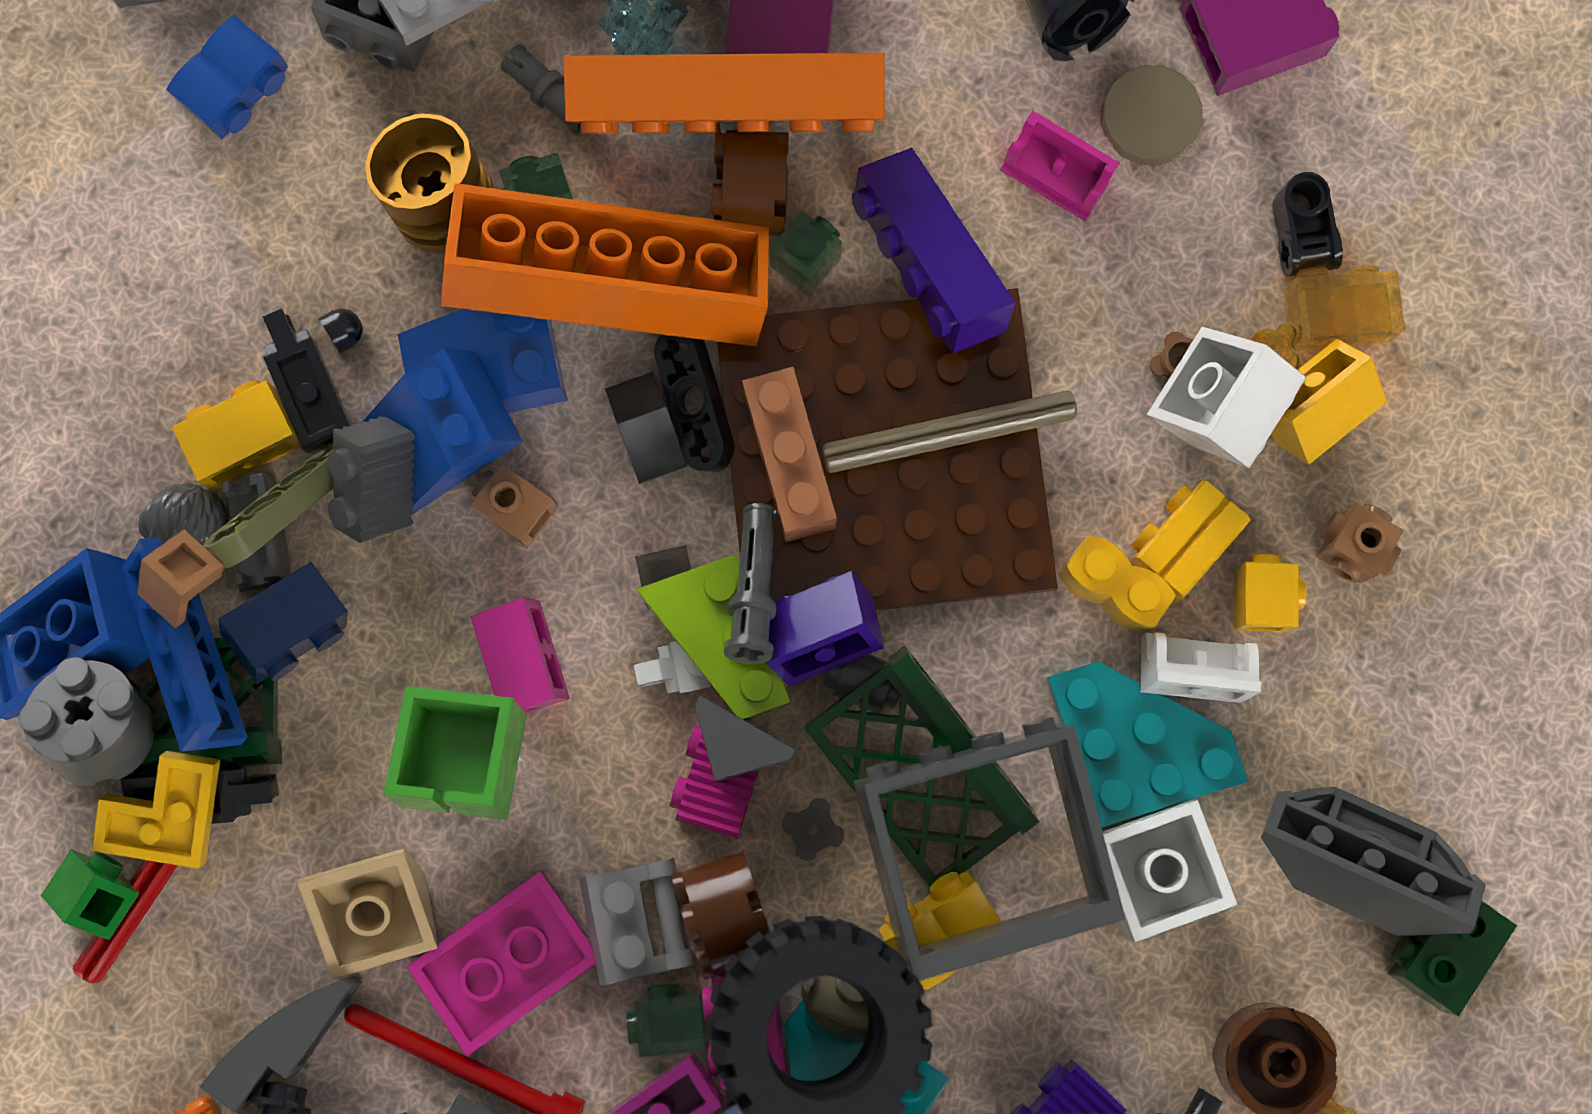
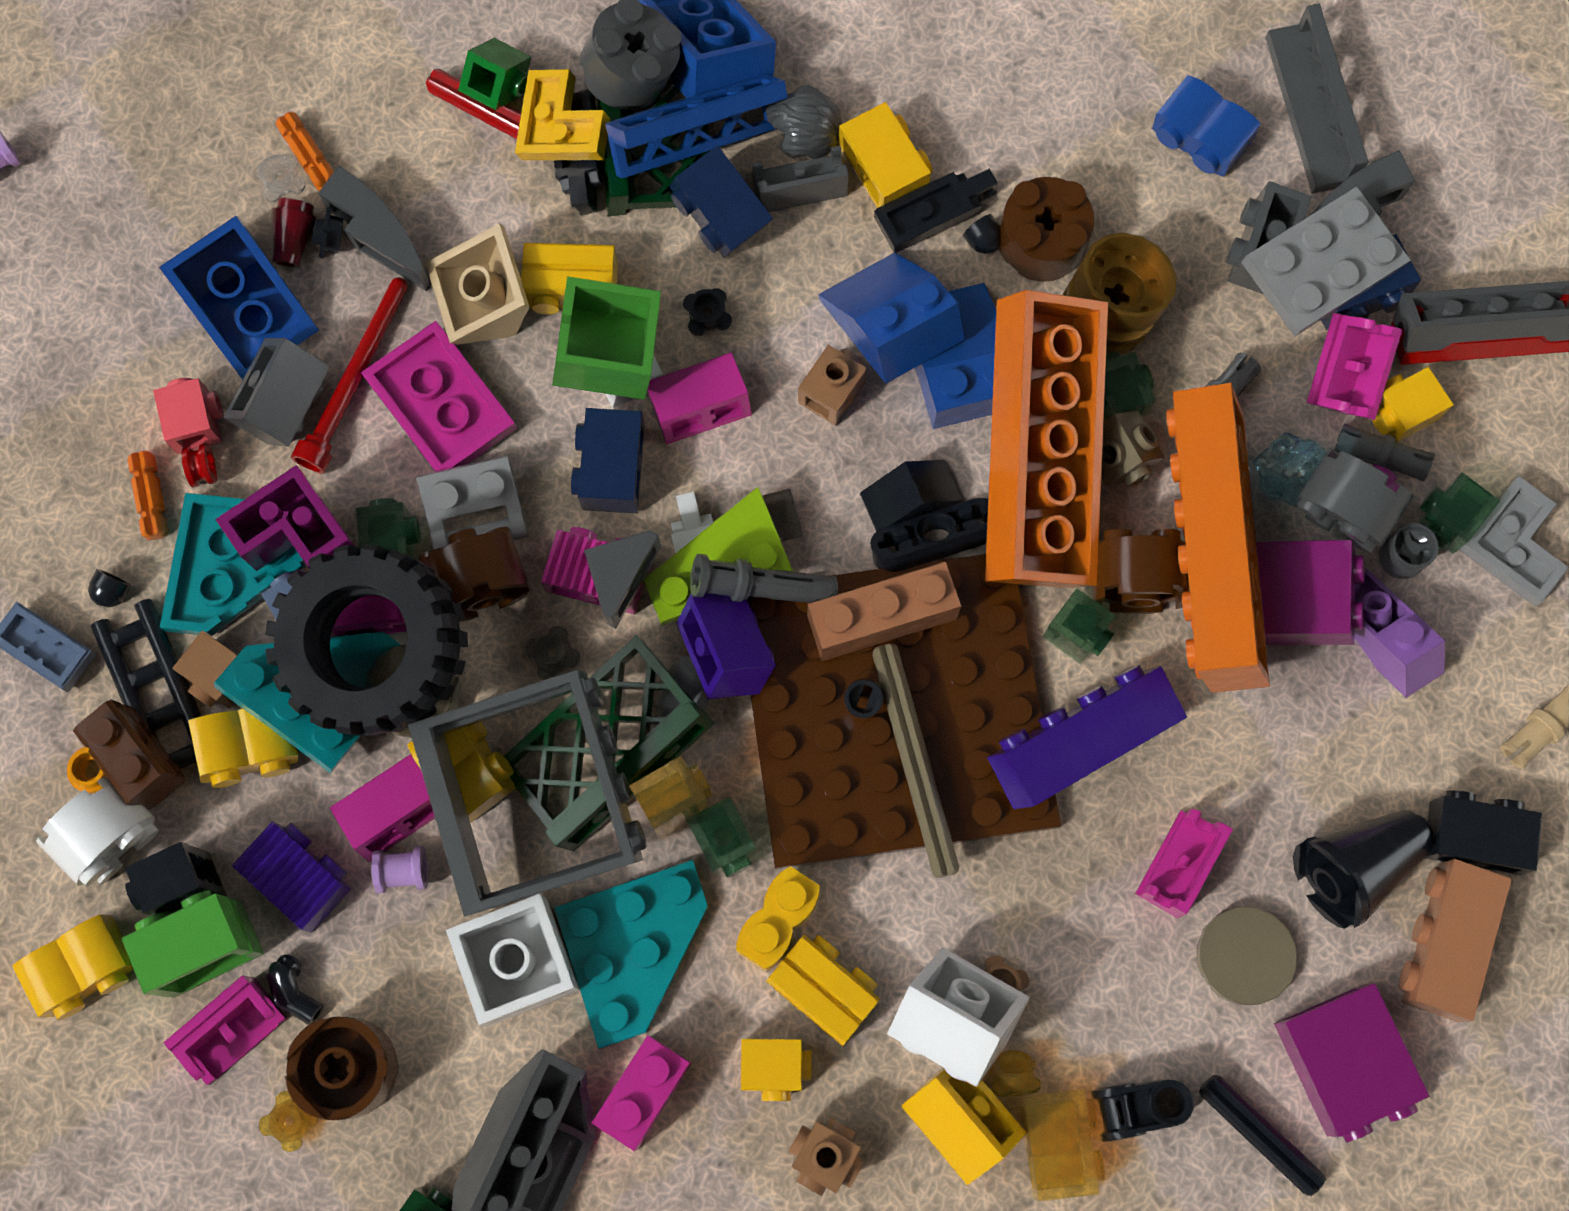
camera: 90 degrees right, 5 degrees down
(176, 575) = (749, 104): medium nougat panel -> none
(273, 510) = (822, 193): olive beam -> none
(321, 238) = (1048, 204): none -> reddish brown brick
(355, 813) = (549, 264): none -> yellow brick
(372, 478) = (846, 261): dark grey brick -> none
(400, 637) = (702, 300): none -> black plate
(592, 758) = (609, 460): none -> dark blue brick
(610, 181) = (1128, 449): none -> dark tan brick
(887, 471) = (854, 693): none -> black hinge
(987, 1018) = (385, 809): none -> dark pink hinge
(988, 690) = (672, 795): none -> clear yellow brick
(1027, 641) = (723, 838): none -> clear green brick
(1055, 1001) = (399, 869): none -> lavender bush
(1199, 668) = (703, 999): white hinge -> none
(1298, 733) = (642, 1093): none -> dark pink brick
(1328, 115) = (1262, 1135): none -> black axle

